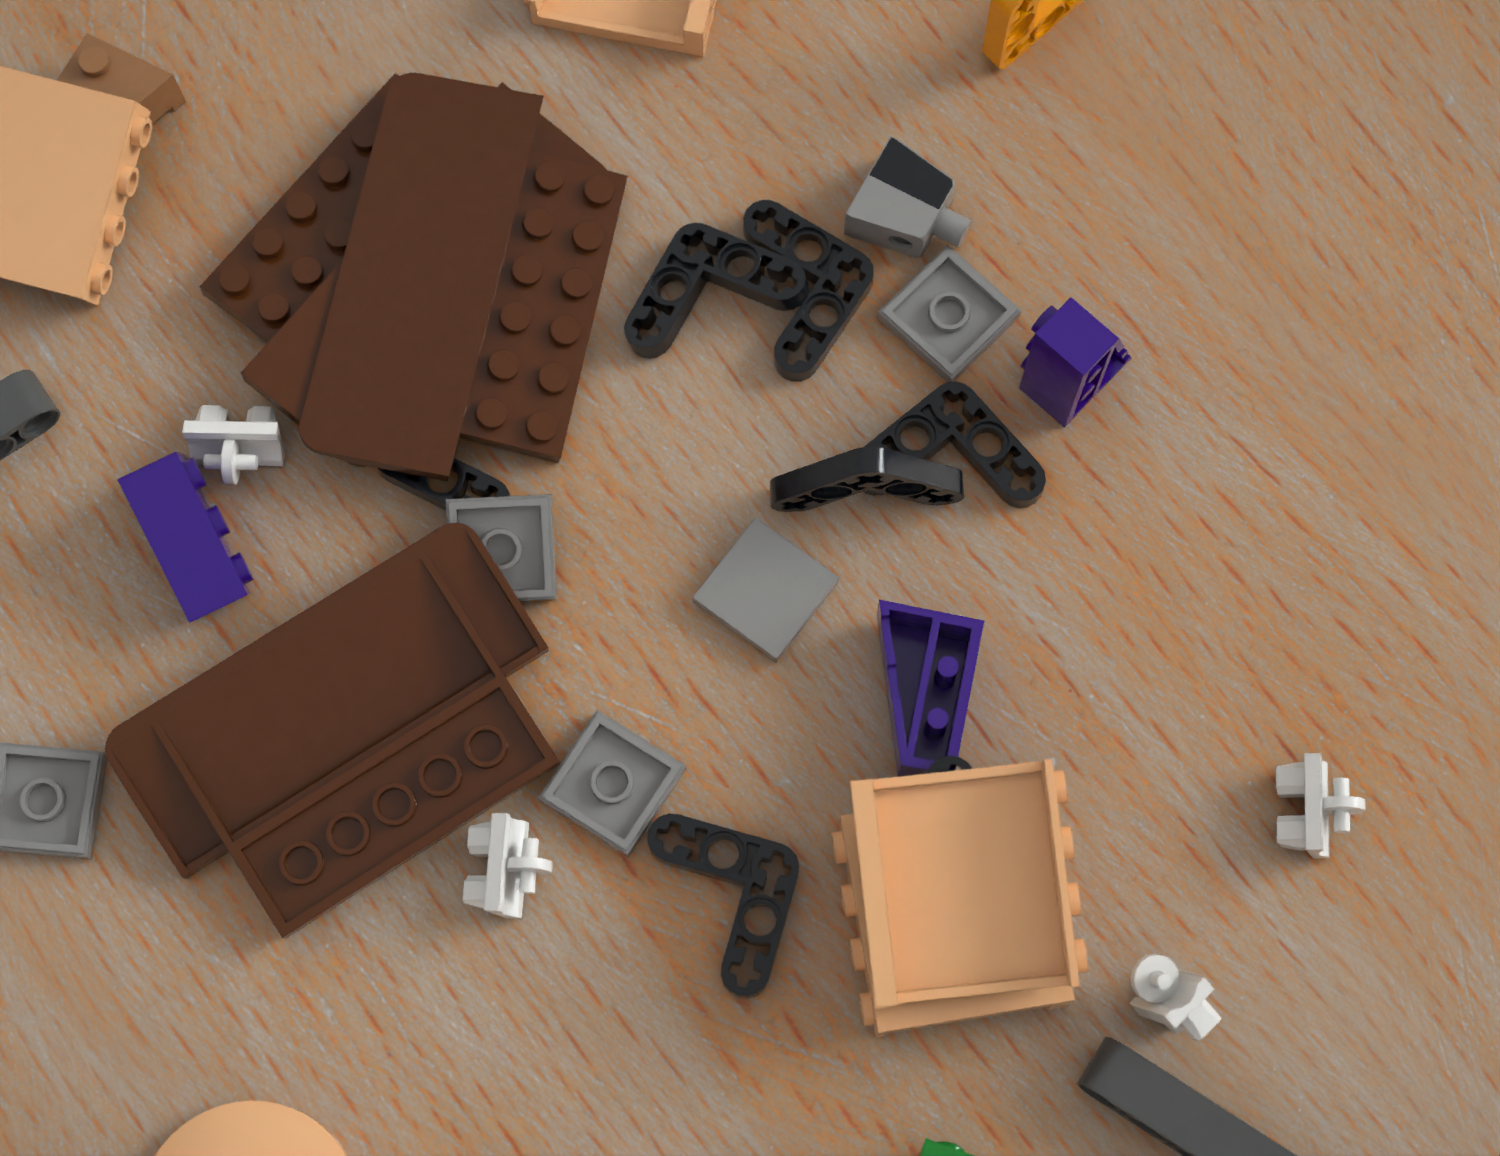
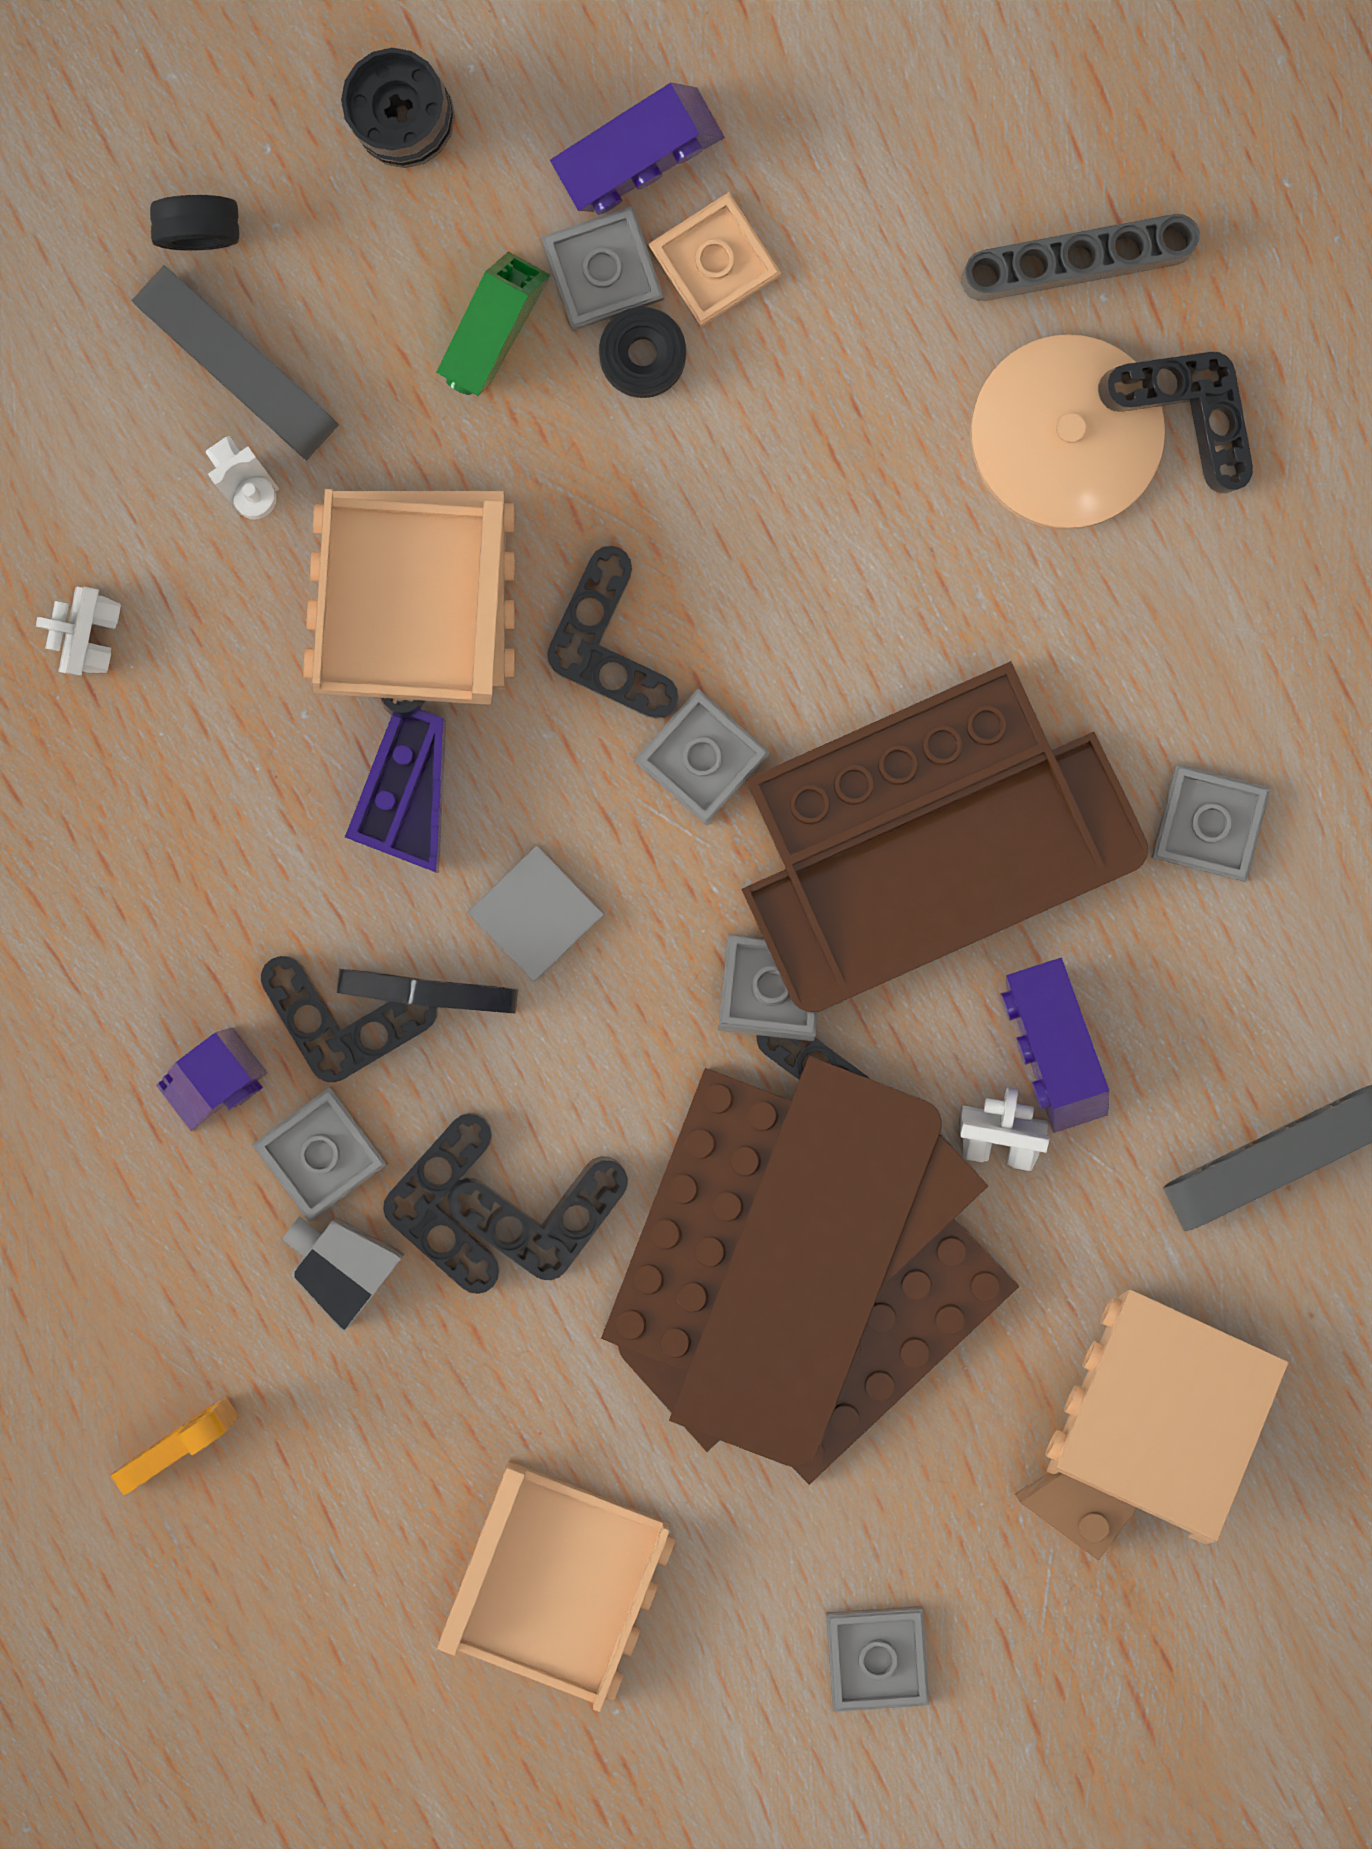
camera: 170 degrees left, 15 degrees up
(510, 866) = (802, 691): white hips -> none

